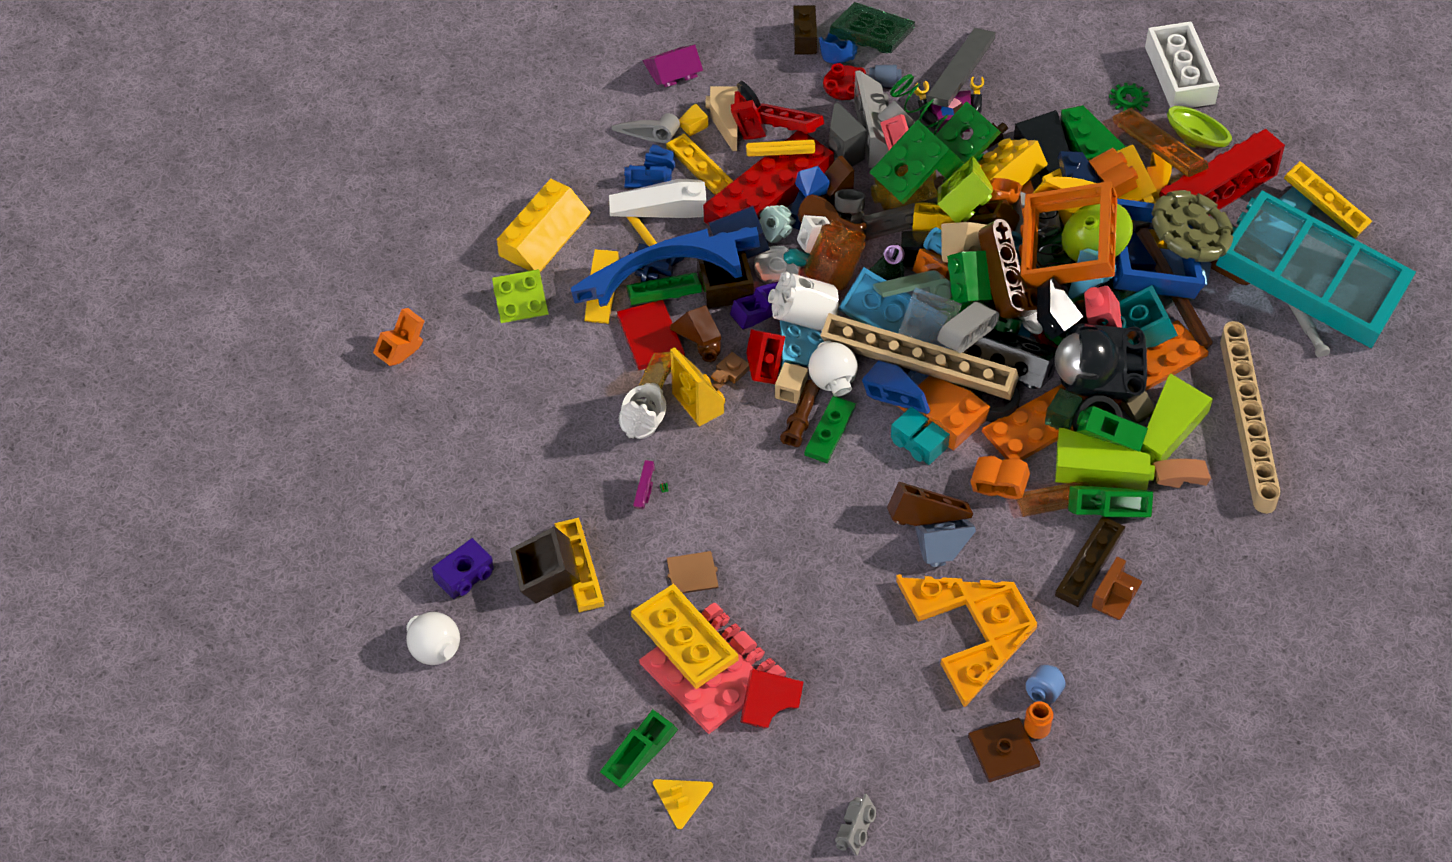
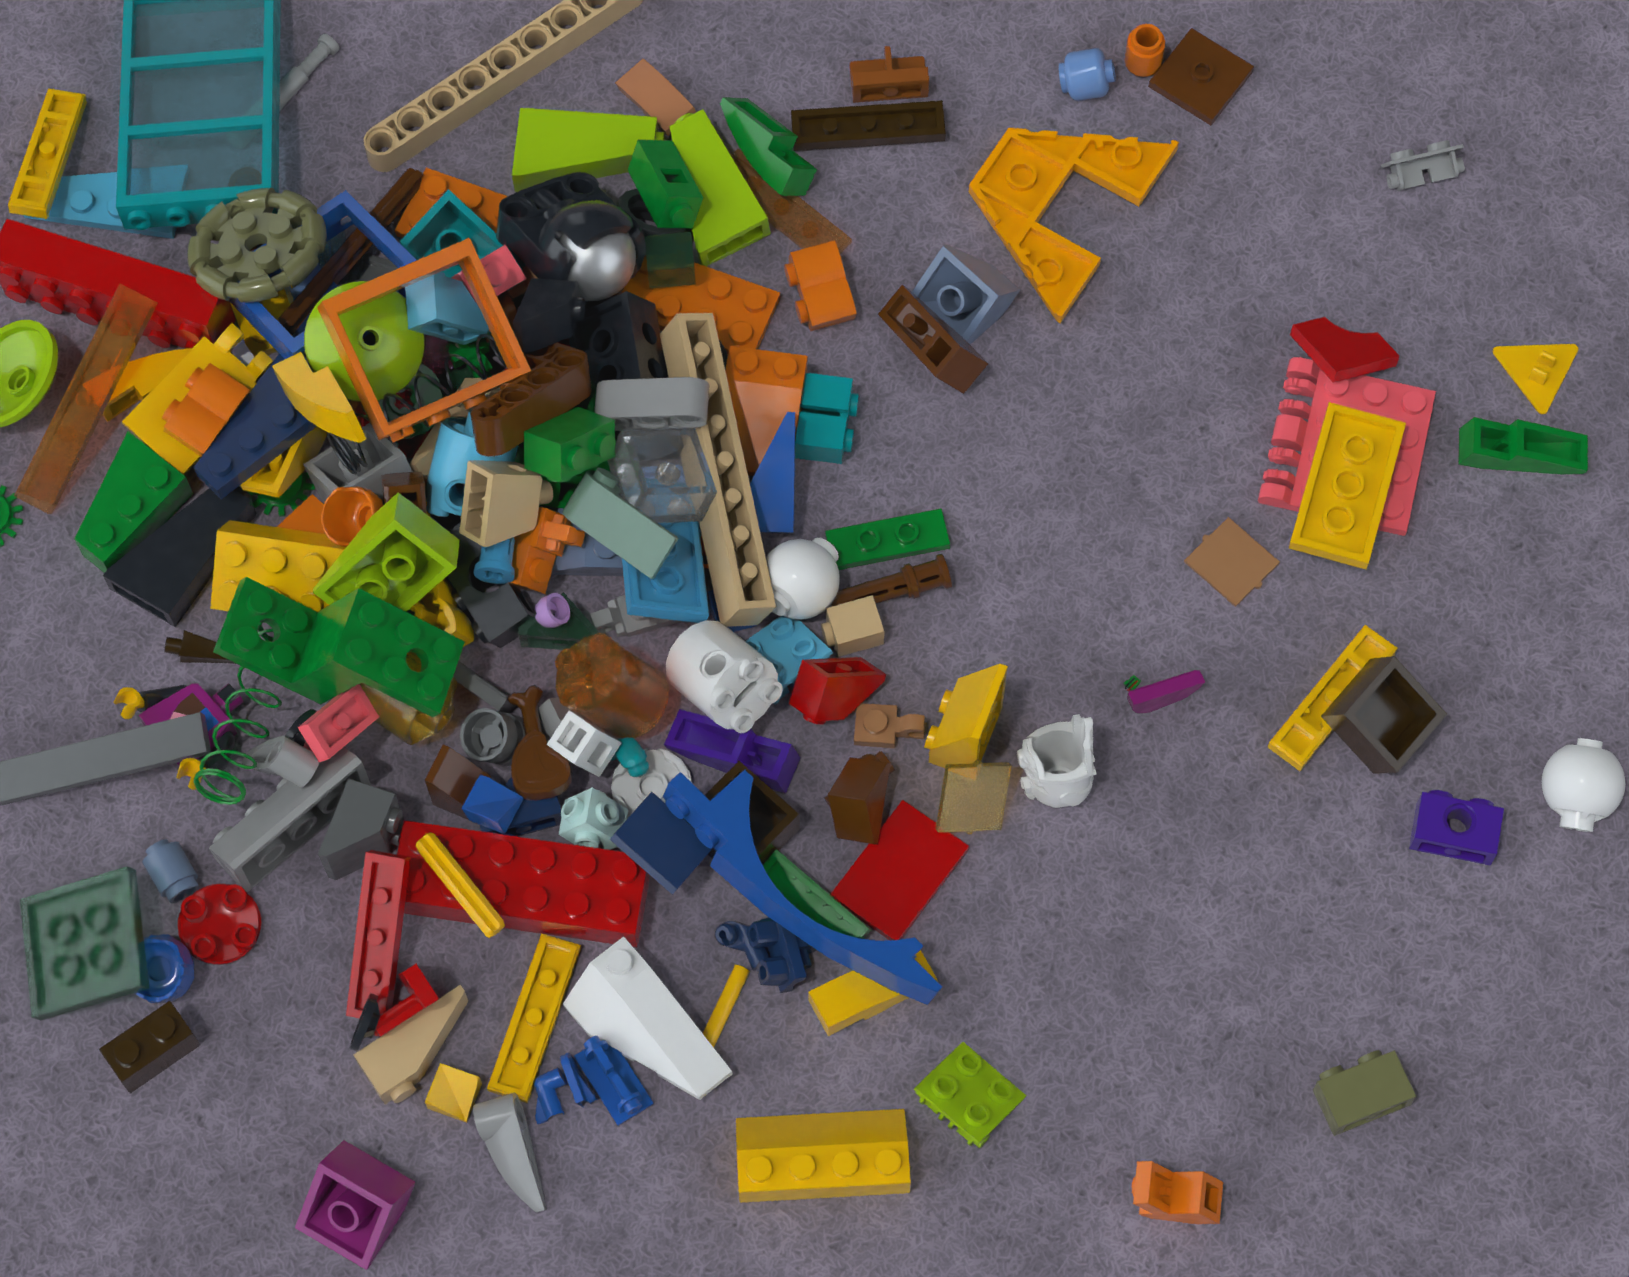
camera: 125 degrees left, 15 degrees up
(375, 444) = (1363, 1091): none -> olive brick

